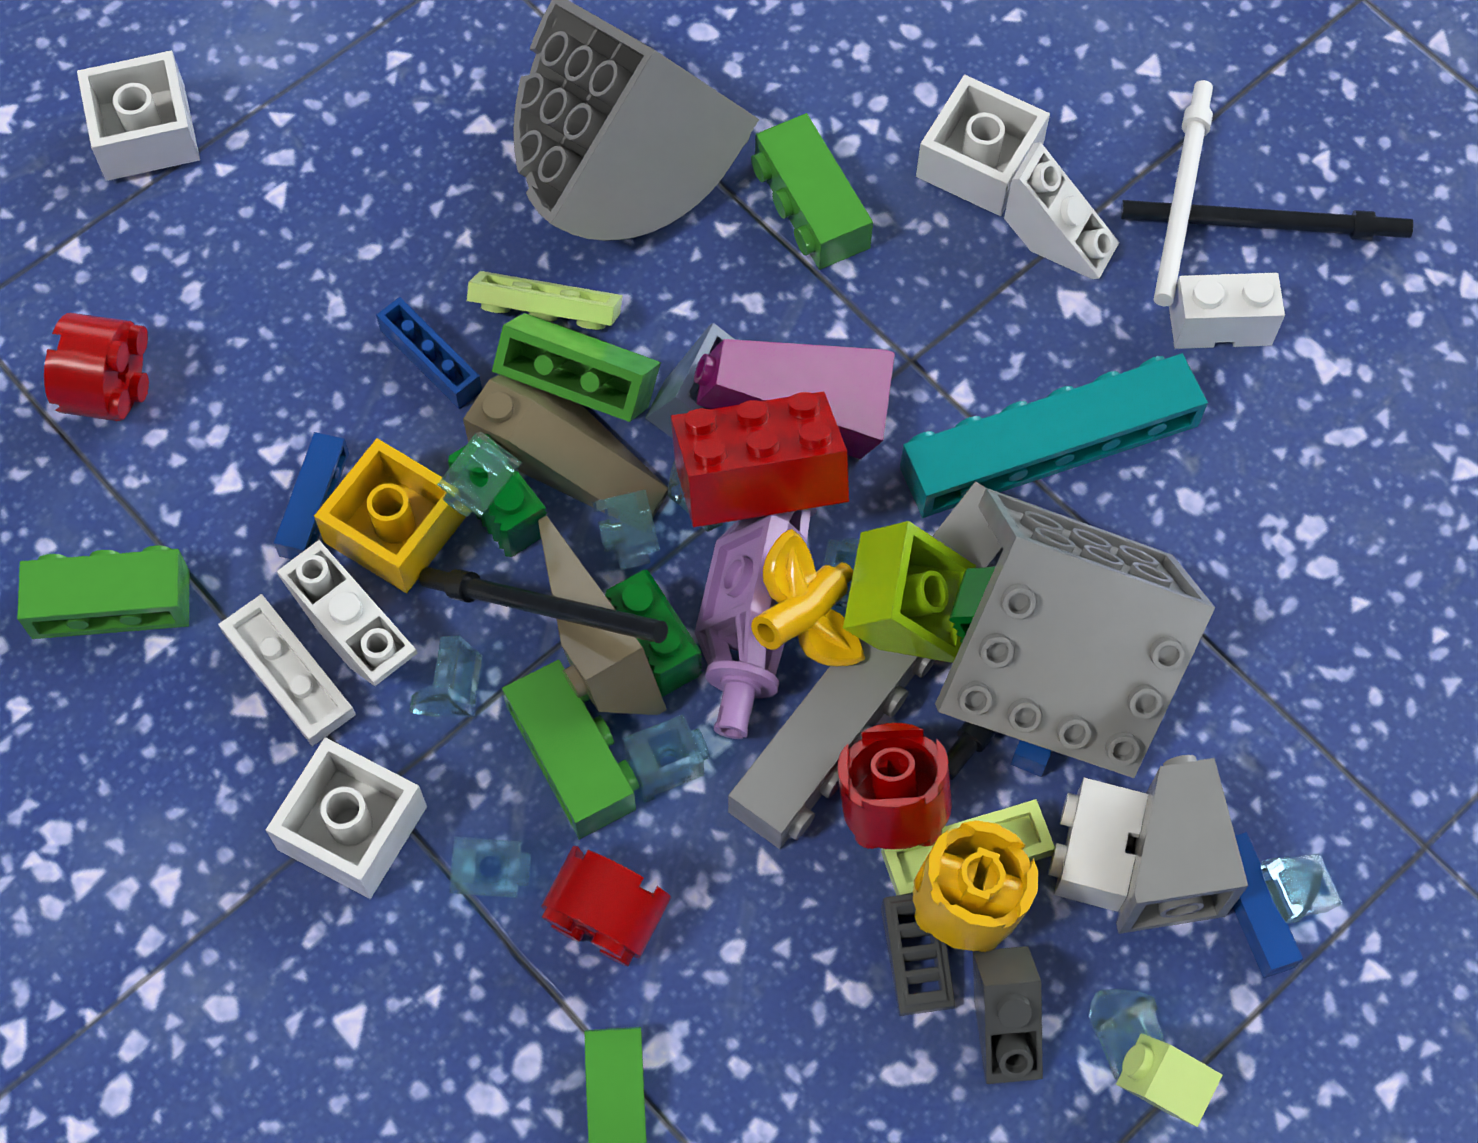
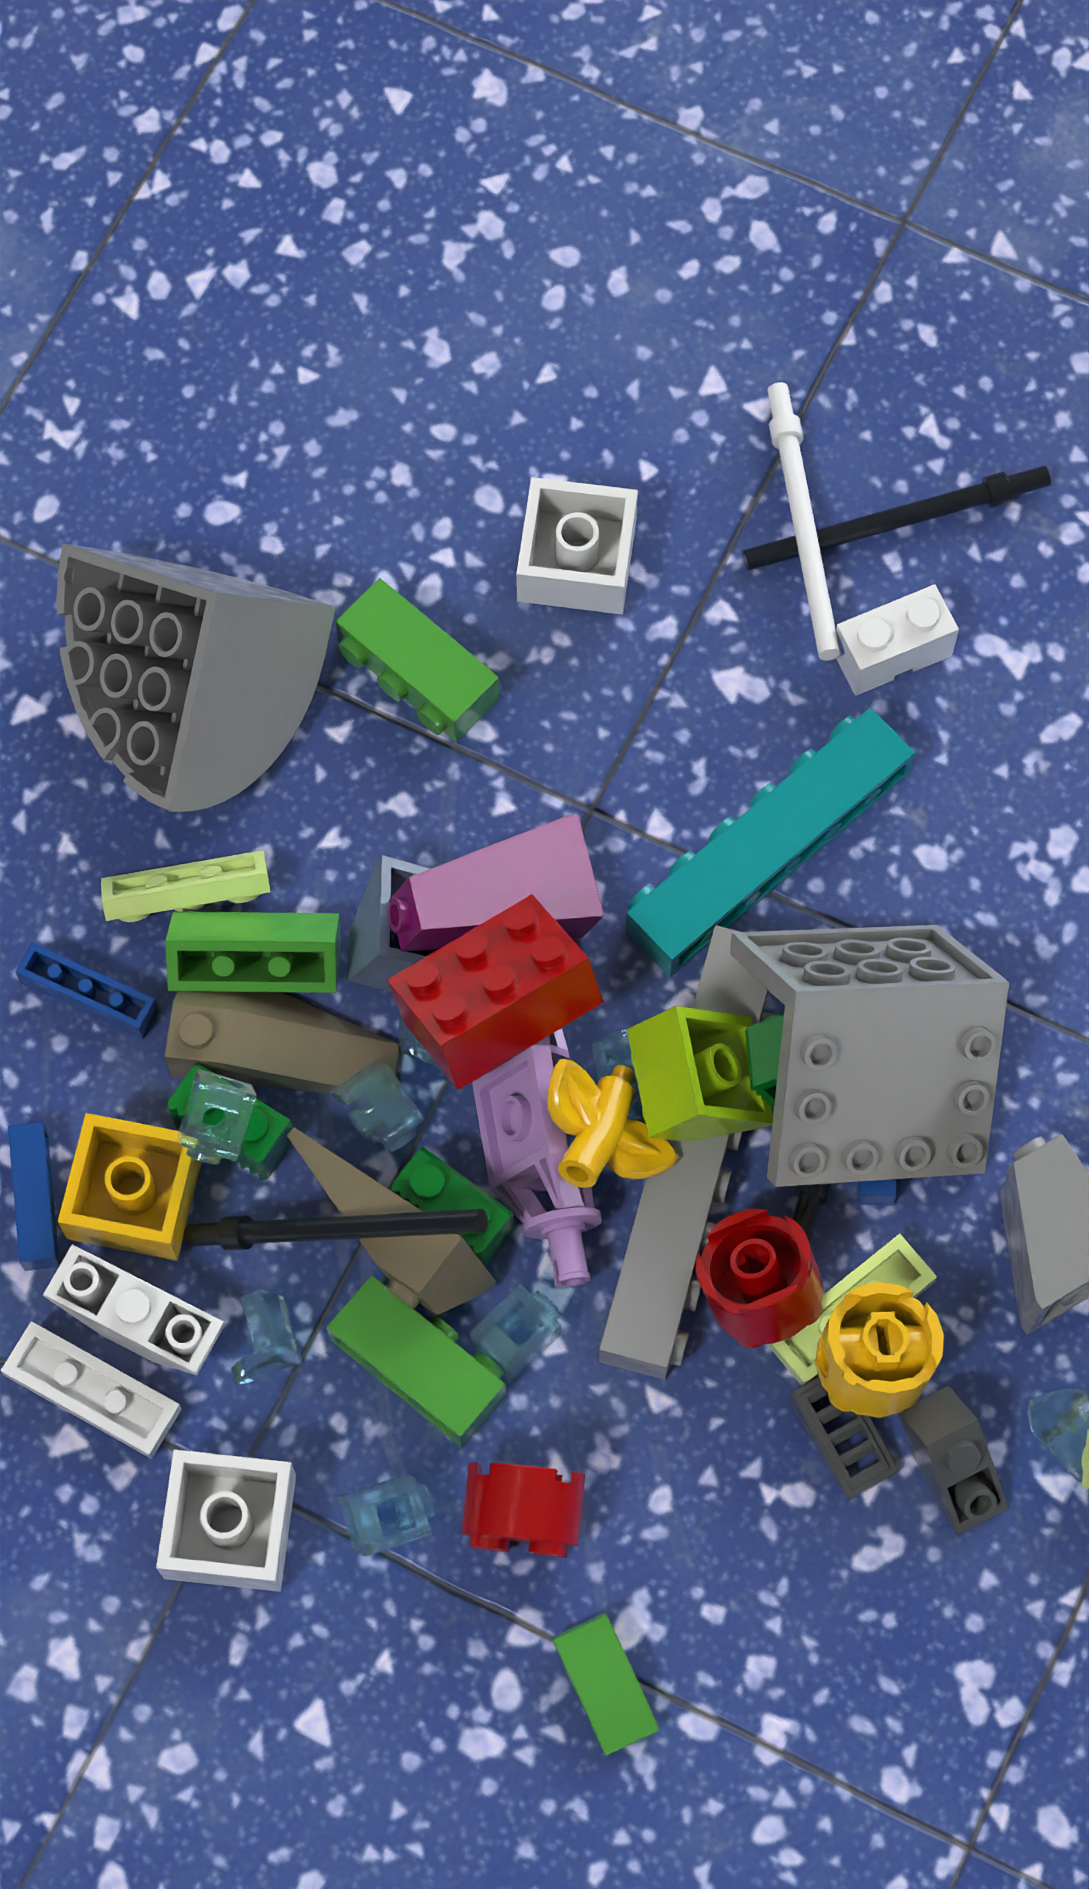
camera: 20 degrees left, 5 degrees up
(1056, 217) = (687, 601): white slope -> none
(1094, 860) = (972, 1243): white brick -> none

